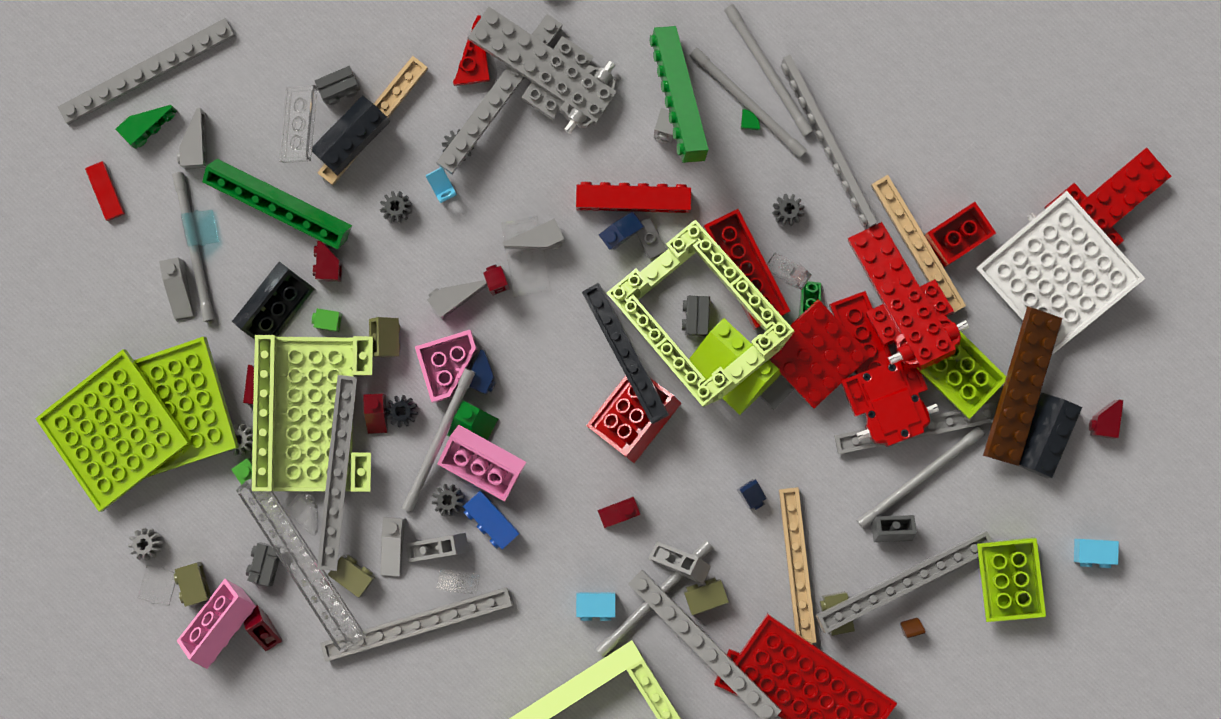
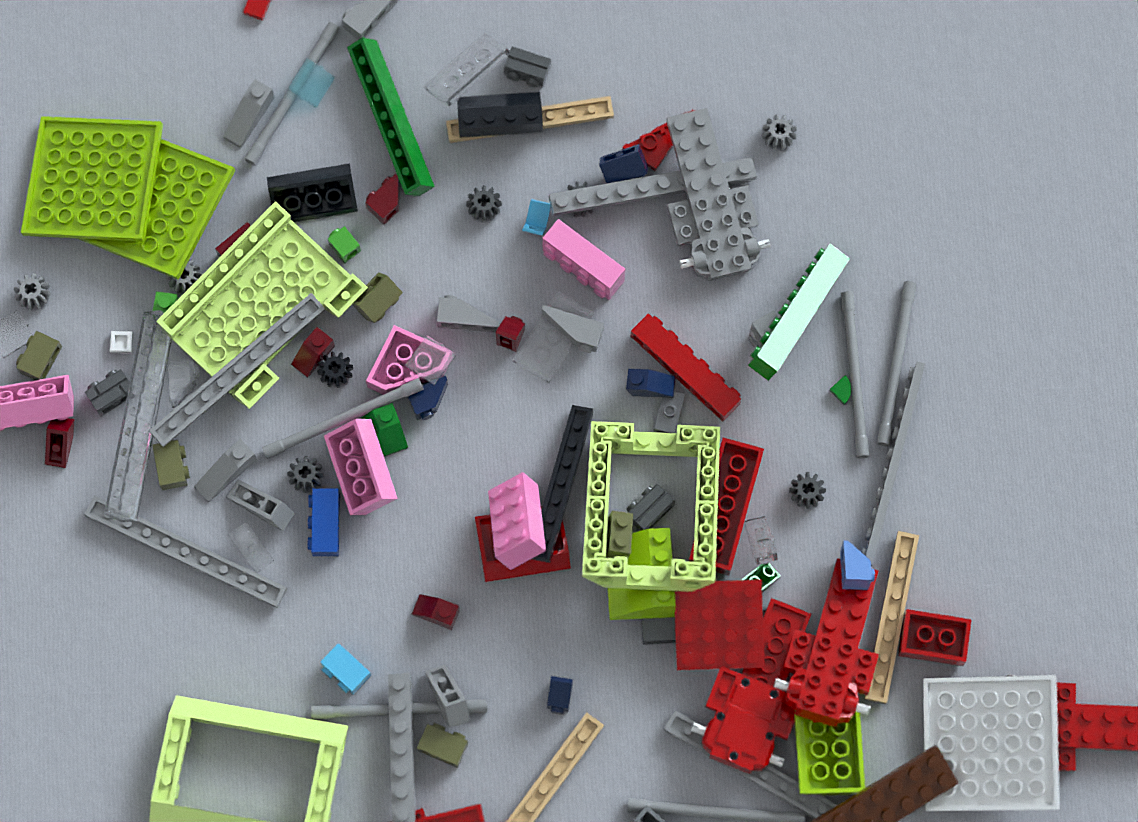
camera: 40 degrees right, 10 degrees down
(239, 522) = (121, 342): none -> white tile
(462, 348) = (430, 360): none -> clear piece
(467, 96) = (624, 165): none -> dark blue brick
(499, 186) = (583, 260): none -> bright pink brick
(621, 406) = (516, 521): none -> bright pink brick
(697, 353) = (619, 534): none -> olive brick
(868, 235) = (855, 568): none -> medium blue slope

